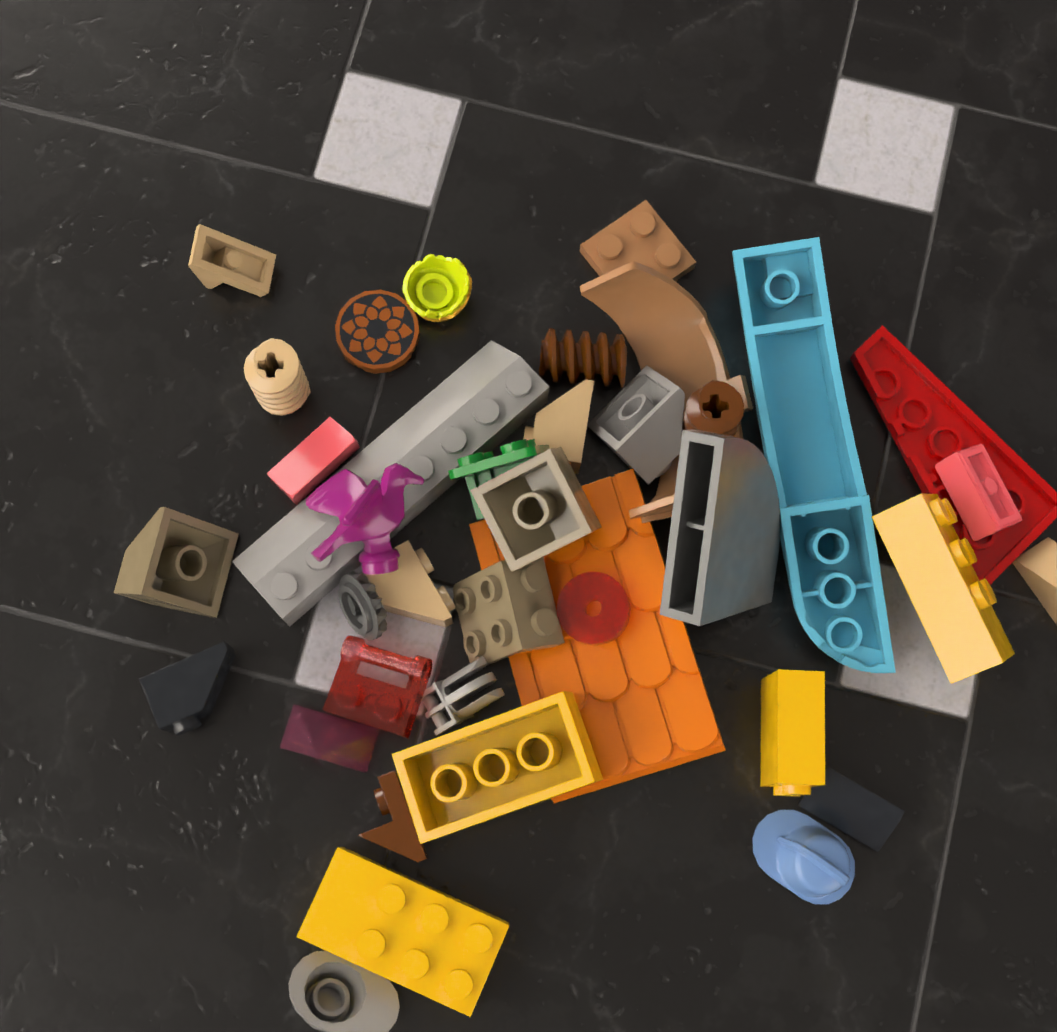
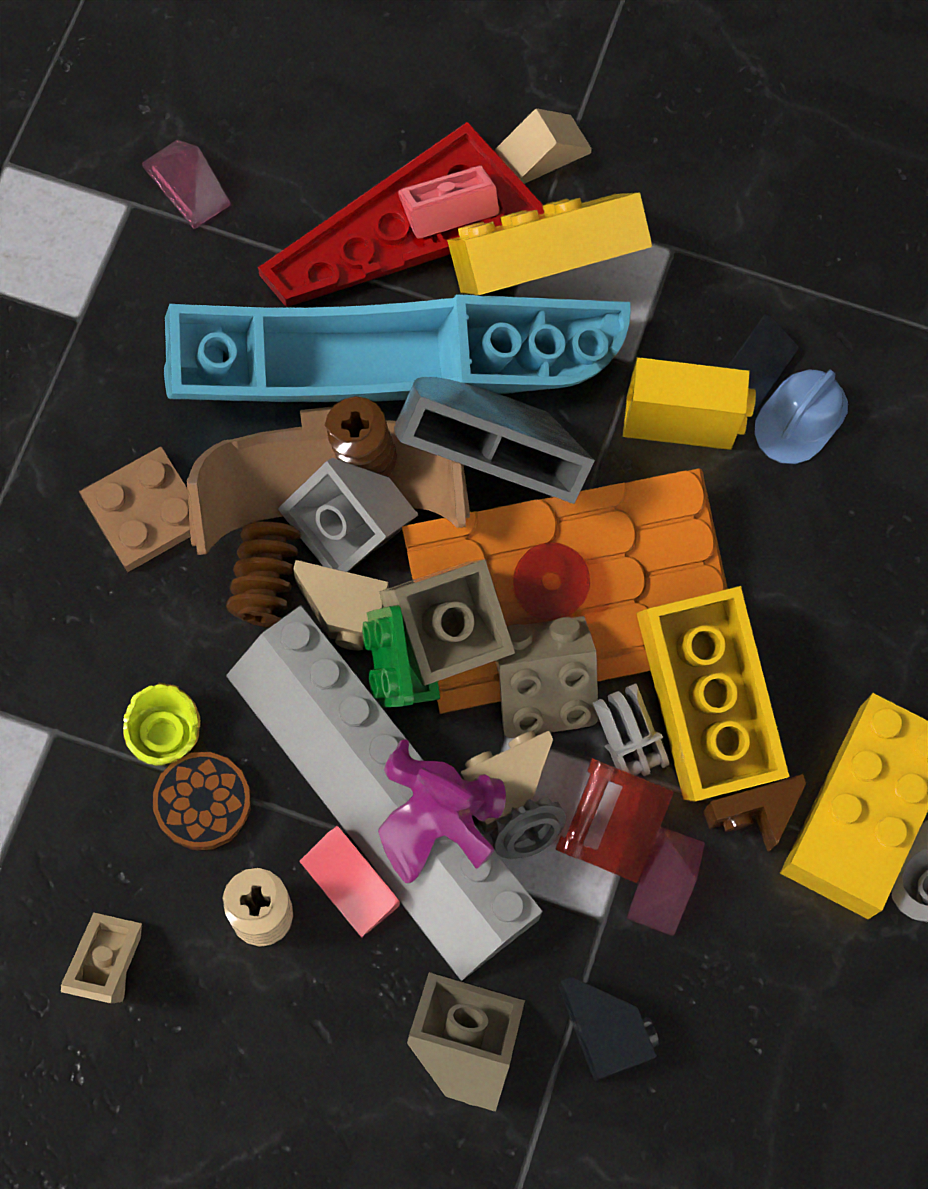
camera: 85 degrees left, 5 degrees down
(962, 258) = (187, 181): none -> clear pink slope

